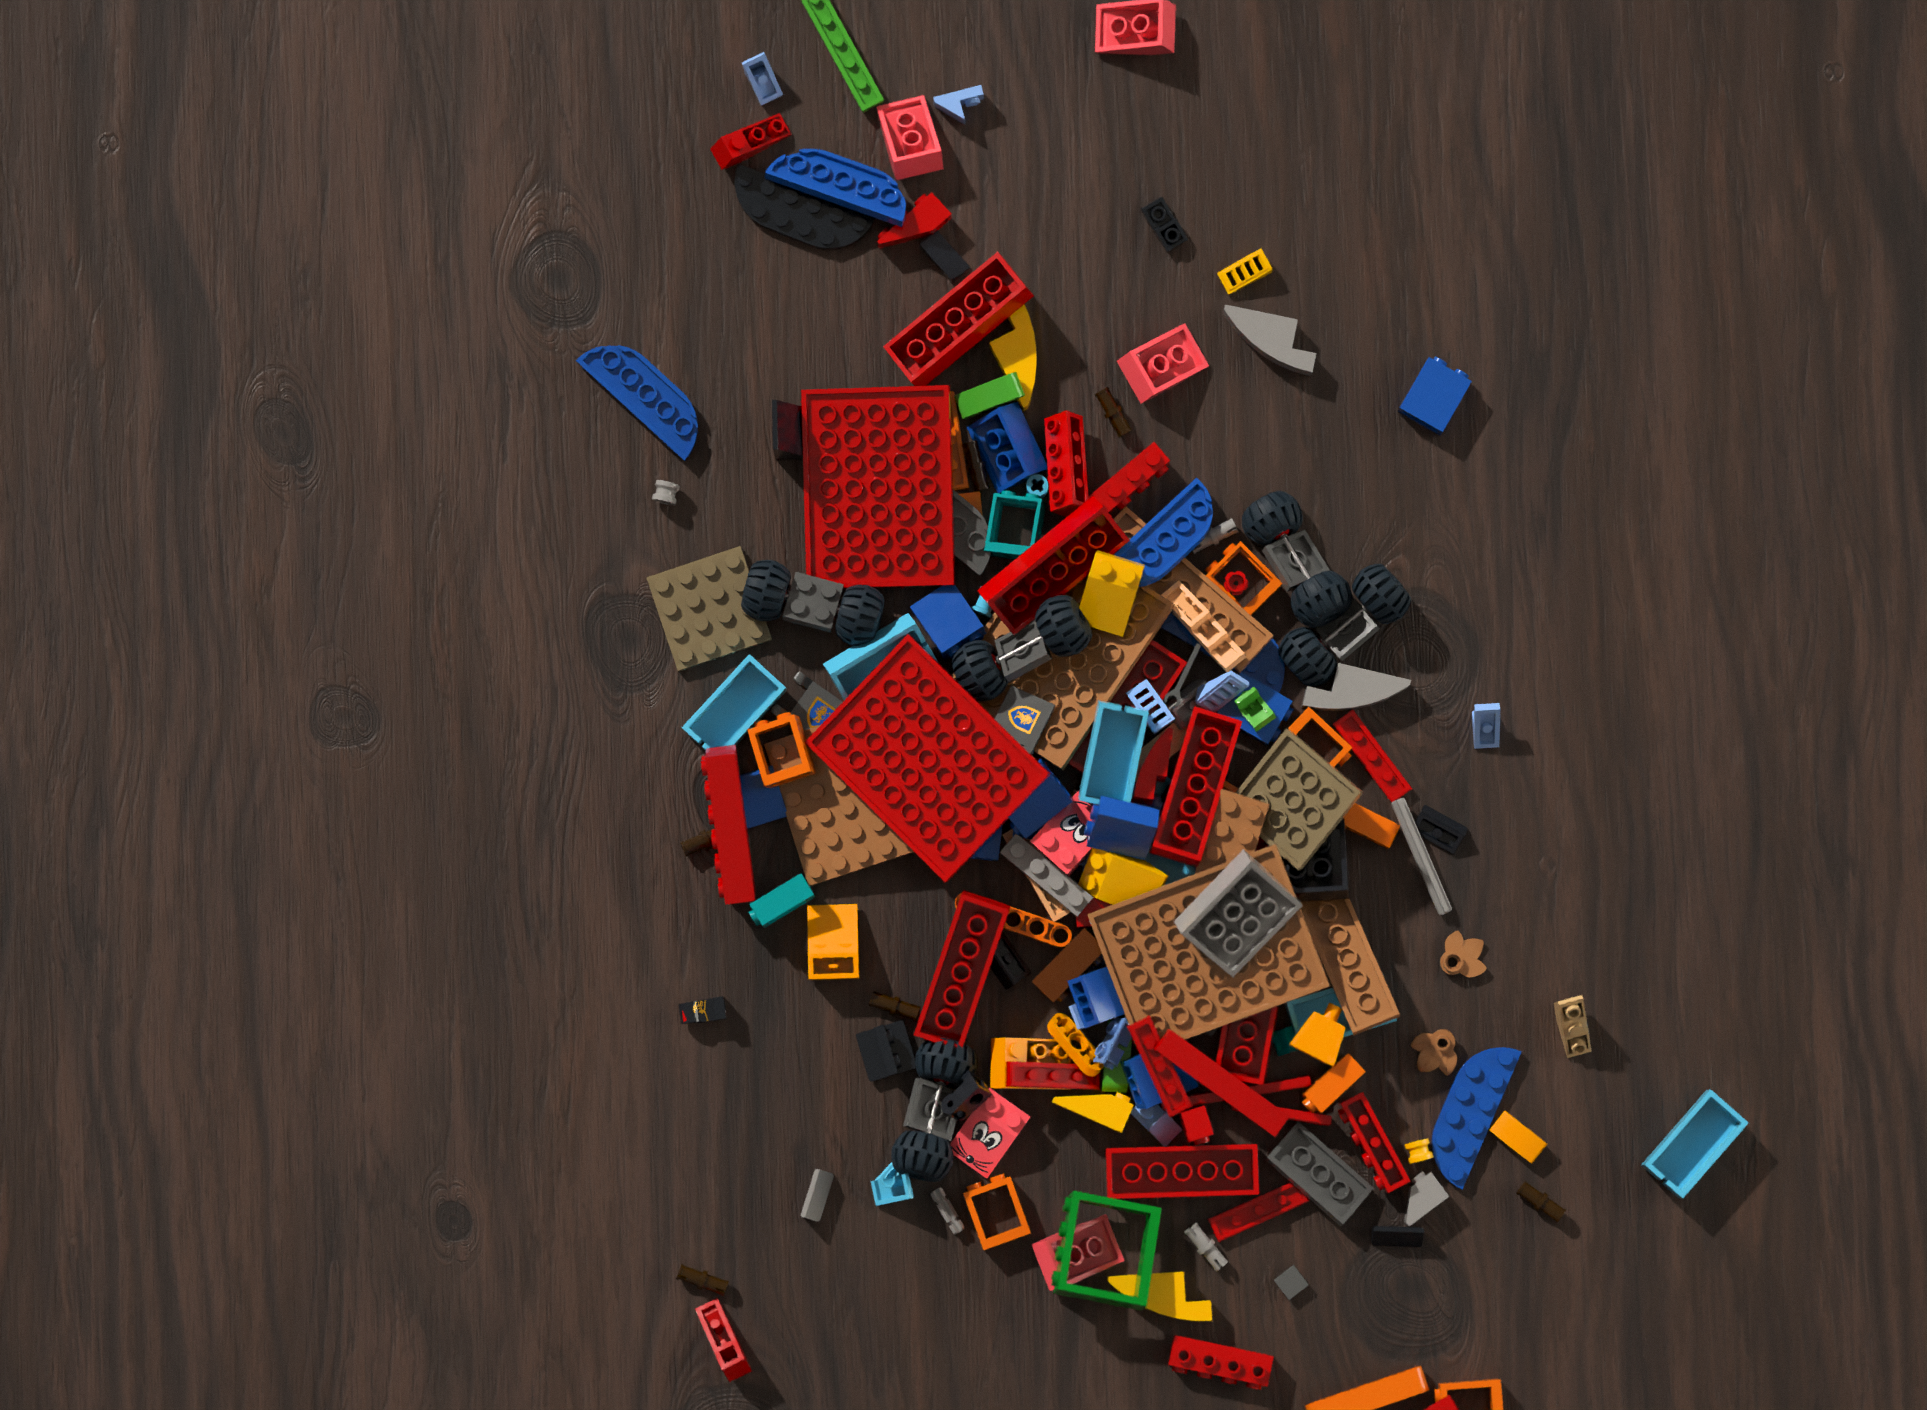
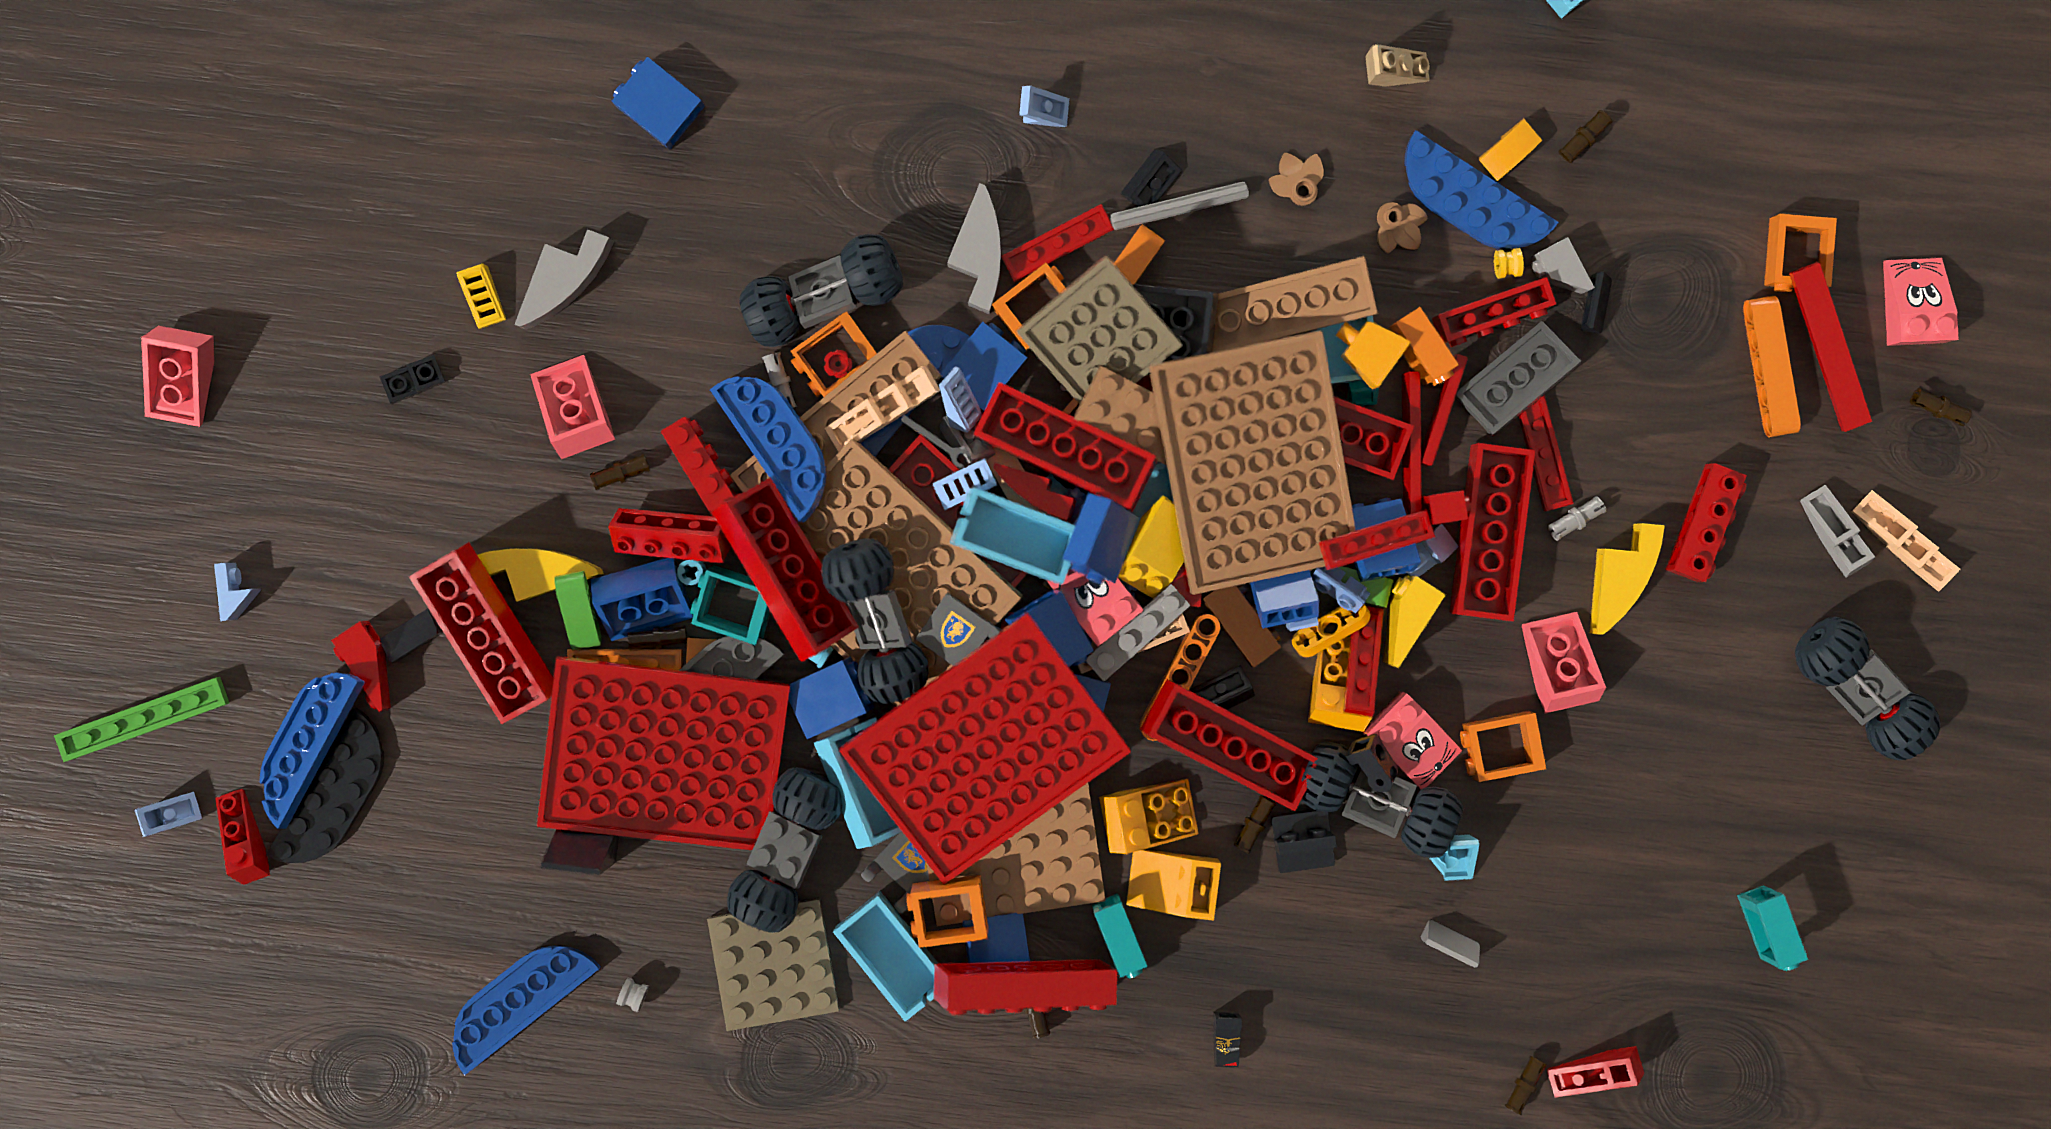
camera: 85 degrees left, 5 degrees up
(887, 912) = (1148, 816): none -> light orange slope
(910, 137) = (266, 654): coral slope -> none
(947, 1210) = (1491, 800): light grey axle -> none
(1110, 592) = (826, 509): yellow slope -> none
(1147, 1253) = (1589, 589): green window -> none
(1221, 1082) = (1406, 472): red tile -> none
(1237, 913) = (1223, 423): light grey slope -> none
(1254, 709) = (986, 365): bright green bracket -> none
(1291, 1282) = (1629, 430): dark grey tile -> none
(1309, 655) = (933, 294): black plate -> none

